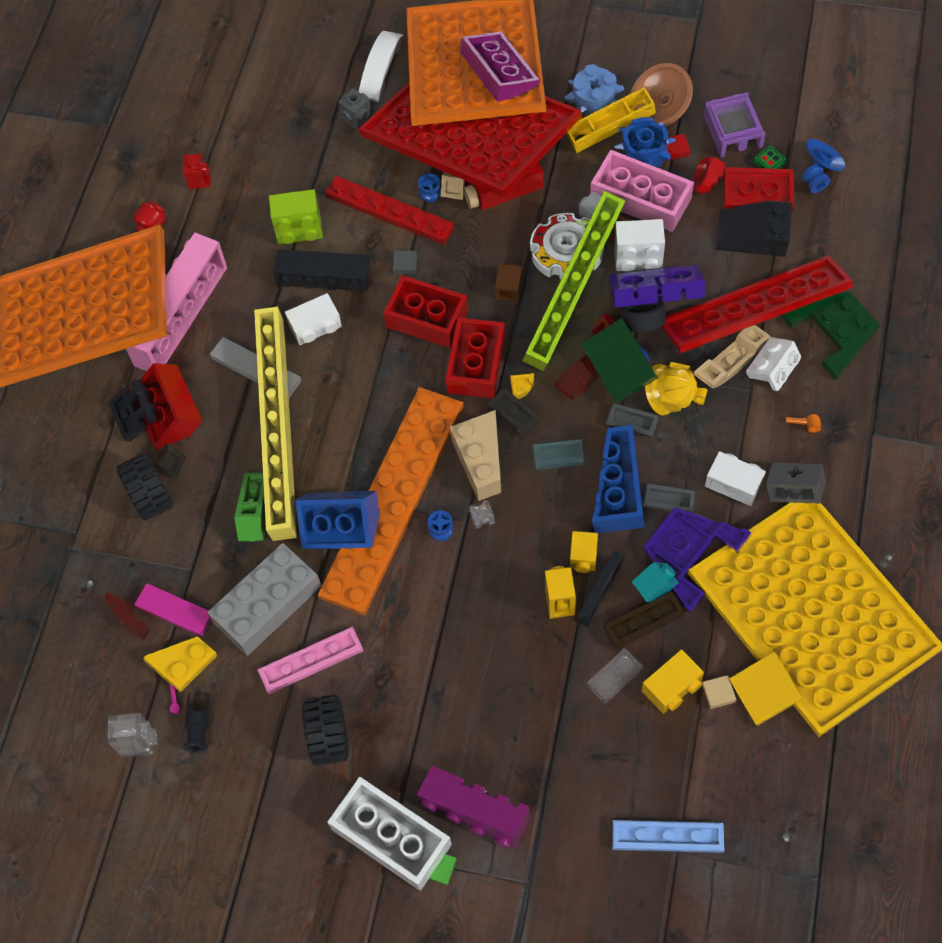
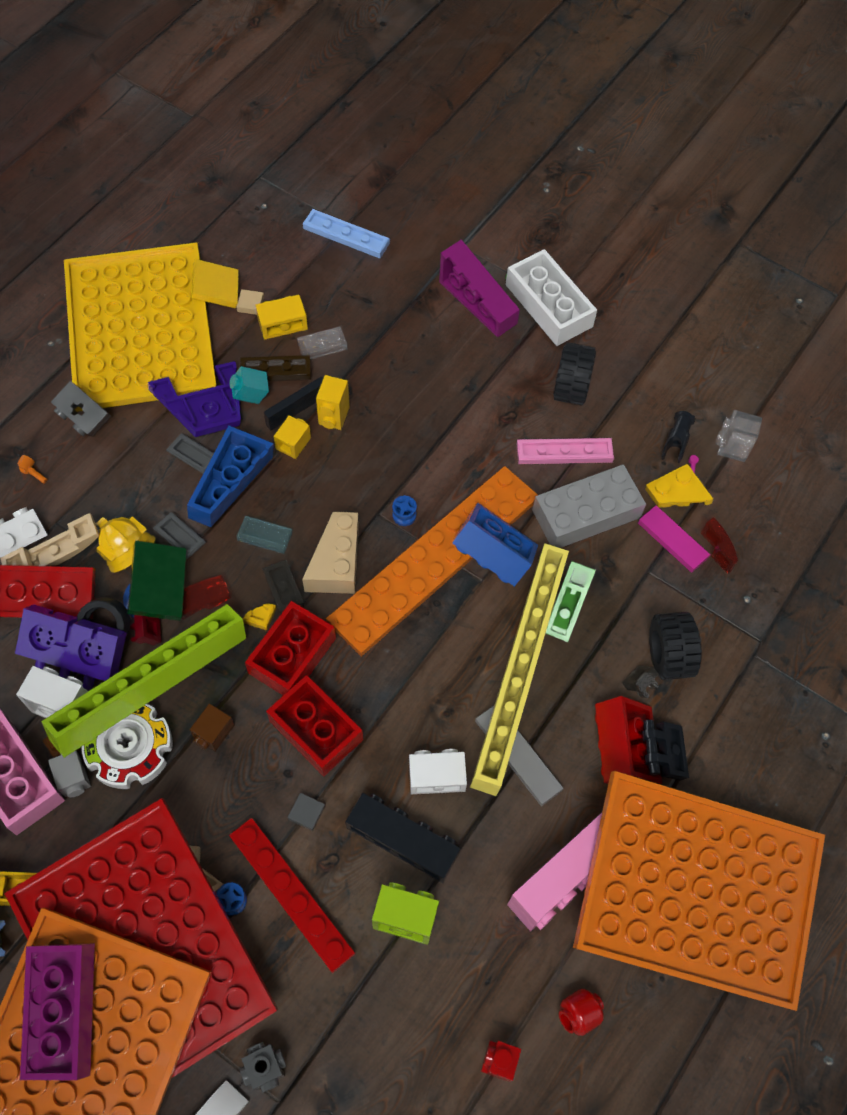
camera: 165 degrees left, 0 degrees up
(481, 514) = (363, 503): clear wheel -> none
(735, 478) = (127, 438): white brick -> none

